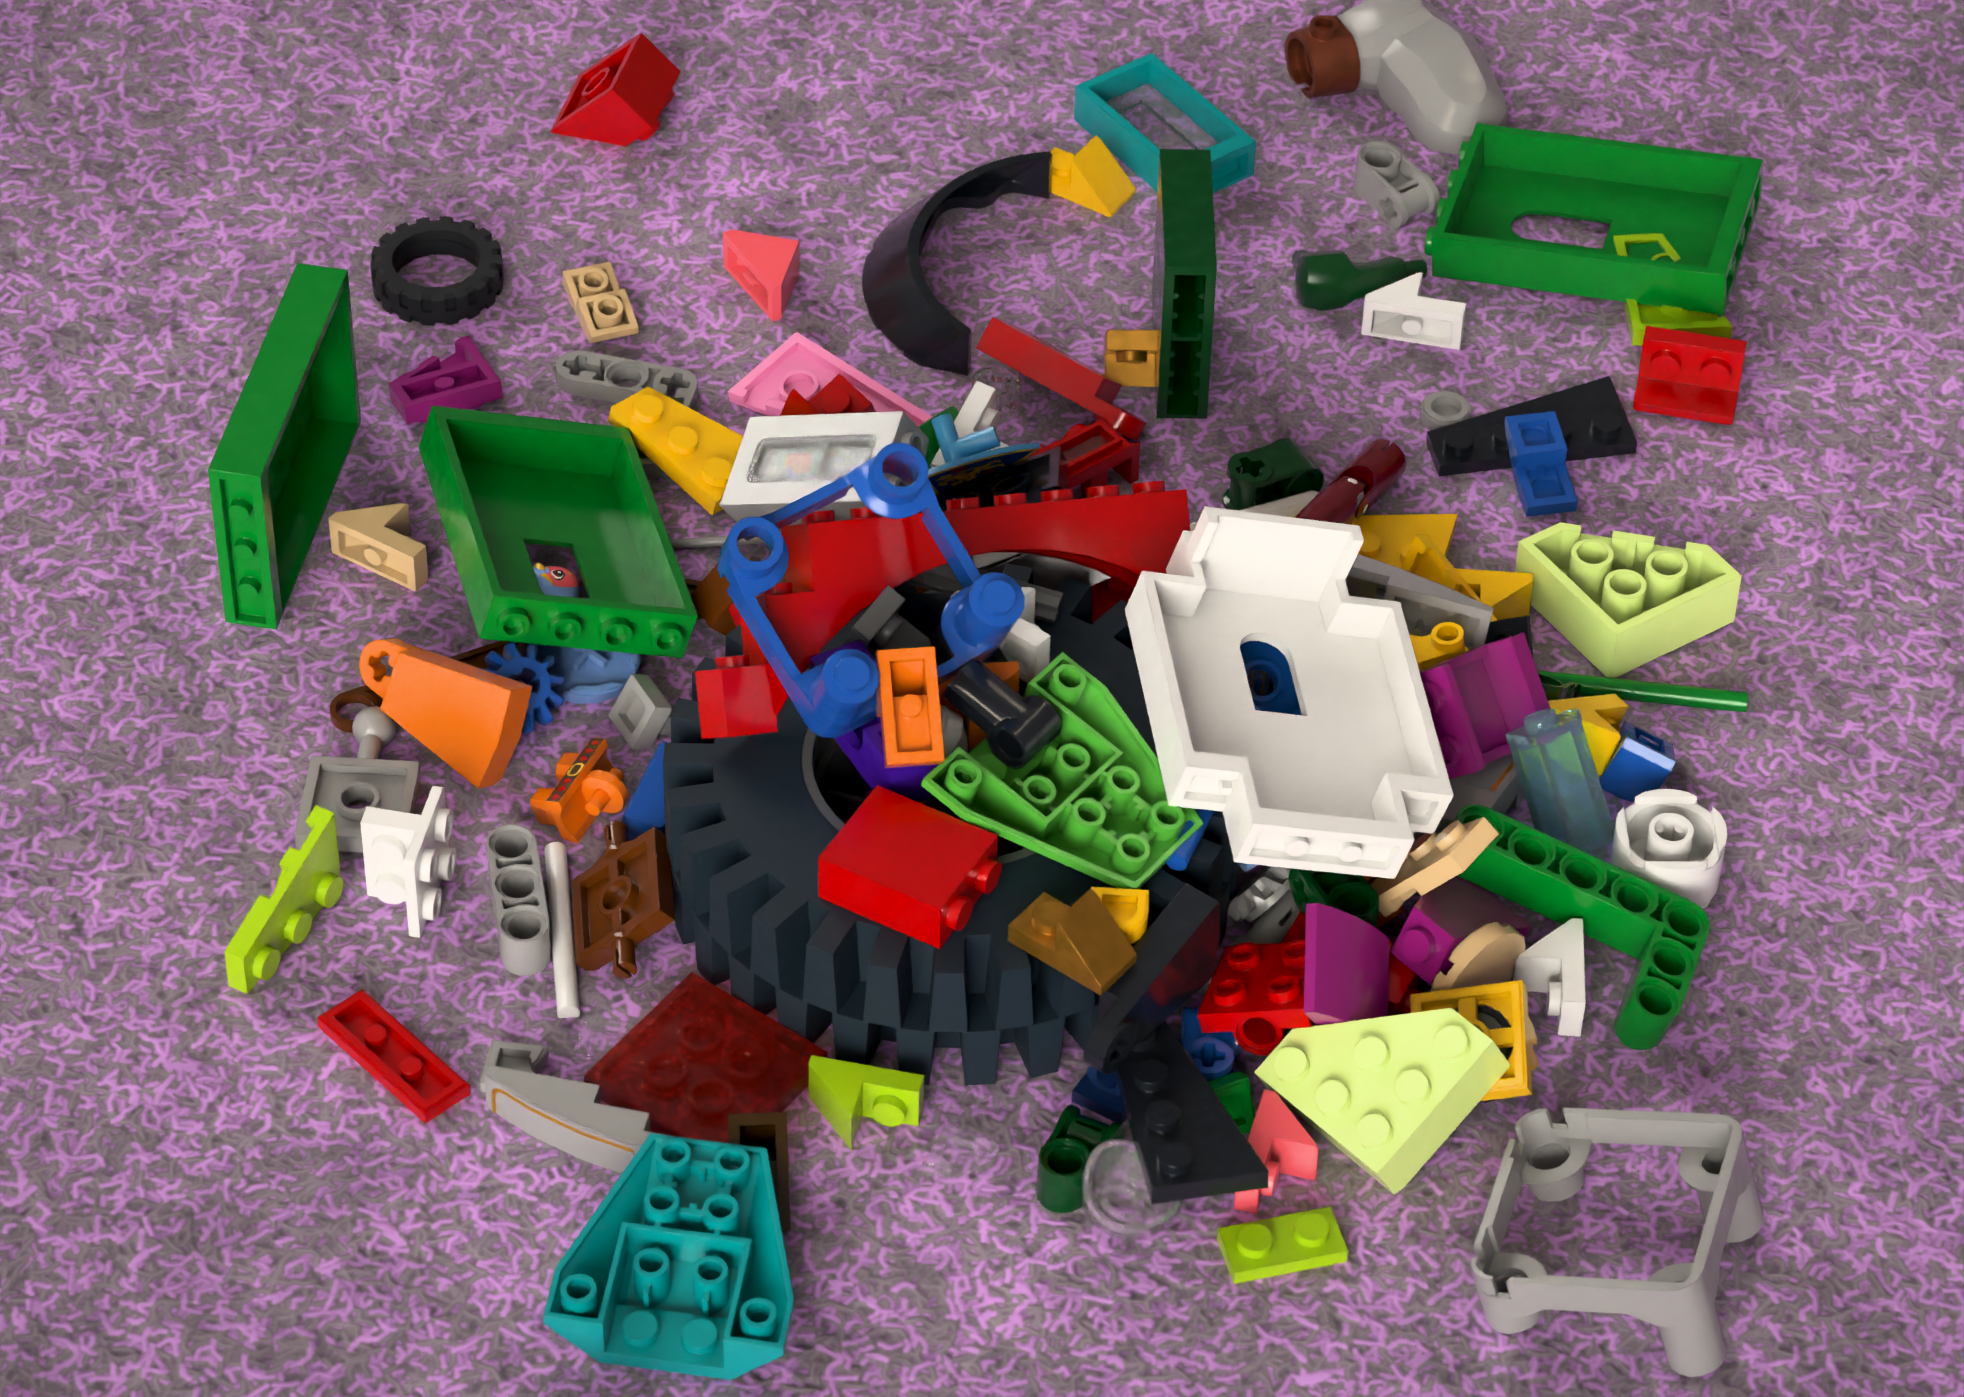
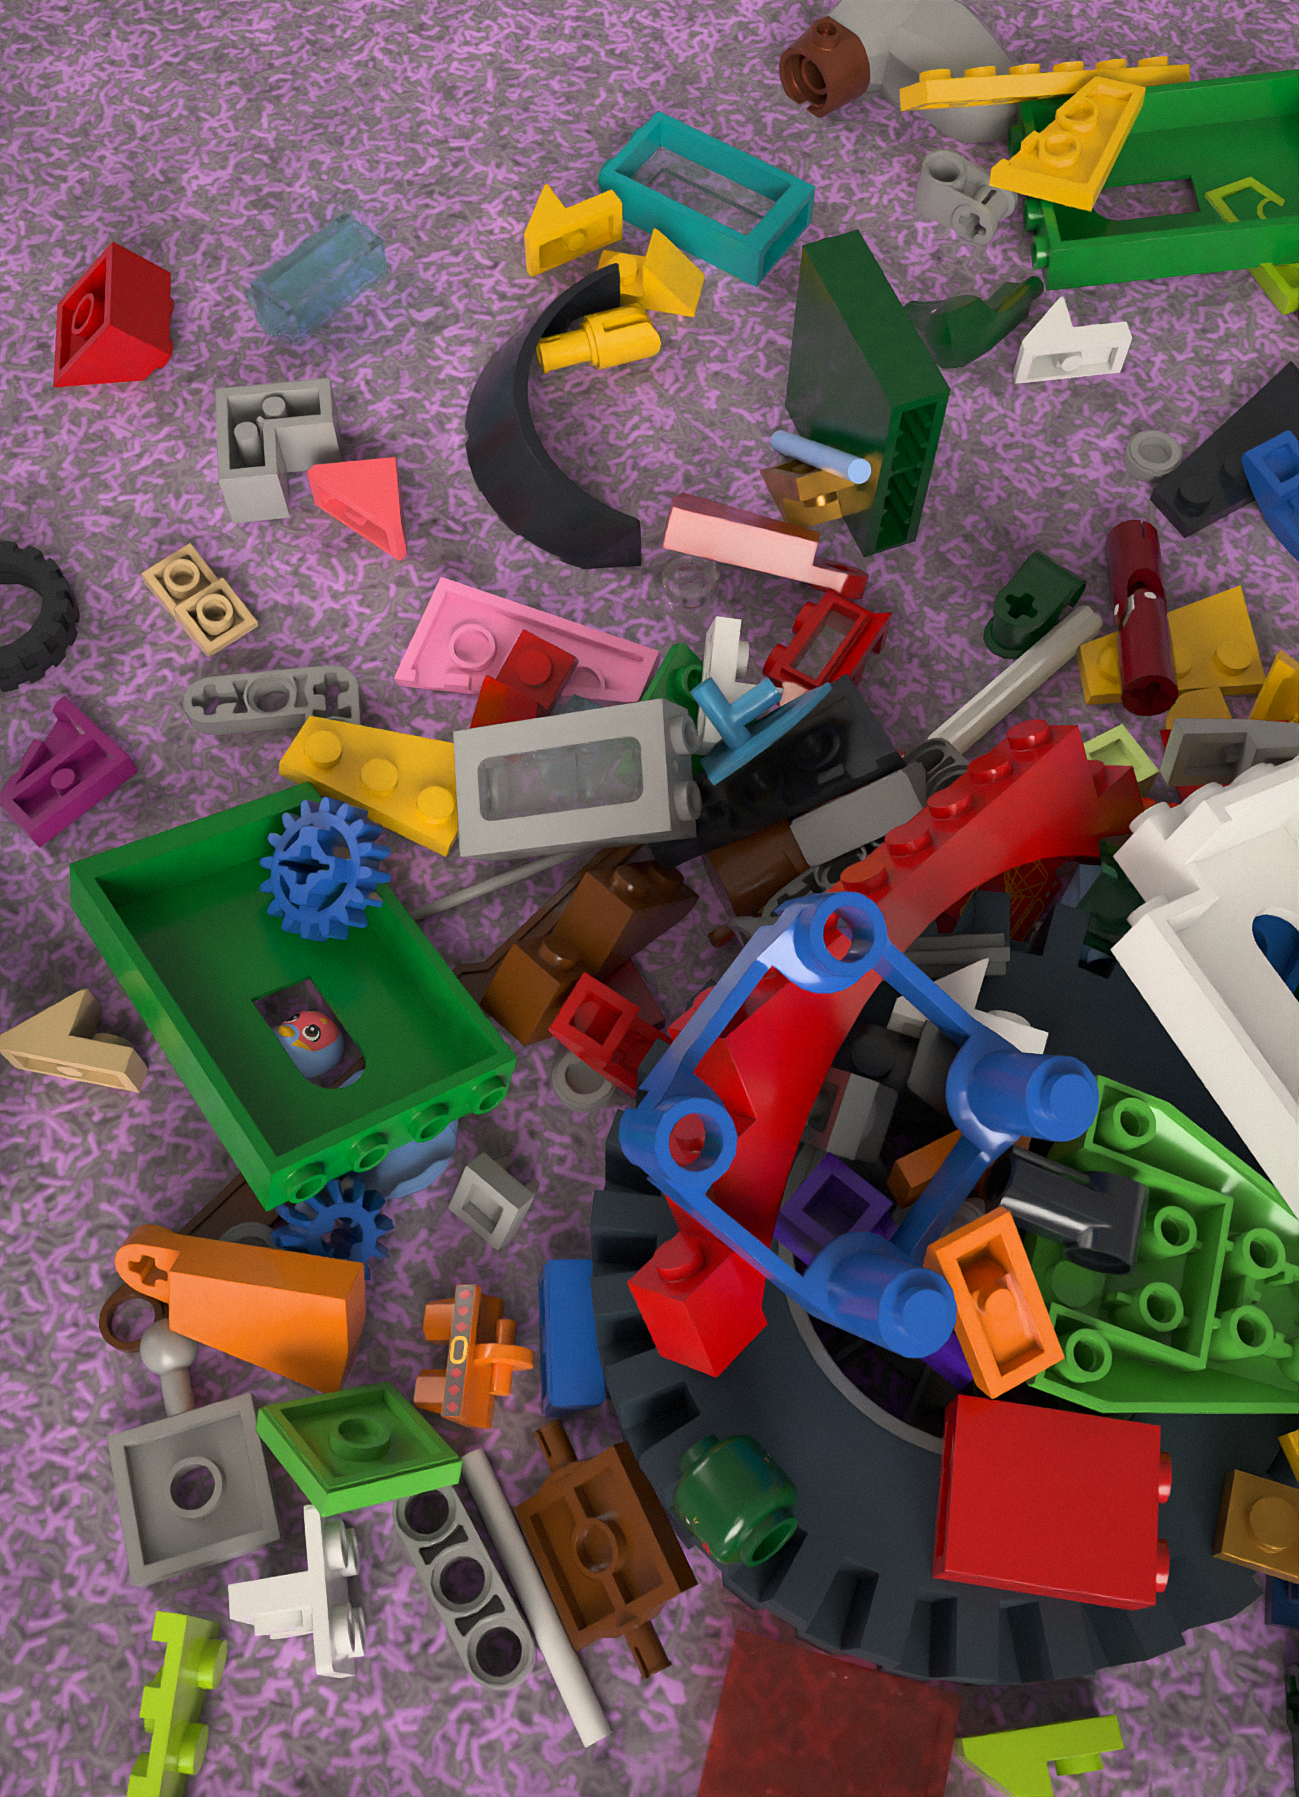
camera: 20 degrees left, 20 degrees up
(482, 790) = (357, 1447): none -> bright green tile
(612, 473) = (321, 901): none -> blue gear
(701, 203) = (265, 436): none -> light grey brick
(710, 806) = (735, 1499): none -> dark green head
(801, 107) = (318, 279): none -> clear light blue brick
(1017, 210) = (602, 340): none -> yellow arm
(1025, 126) = (564, 234): none -> yellow slope
(1136, 319) = (821, 456): none -> light blue bar
(1483, 107) = (1027, 83): none -> yellow plate
(1499, 168) = (1076, 150): none -> yellow wing

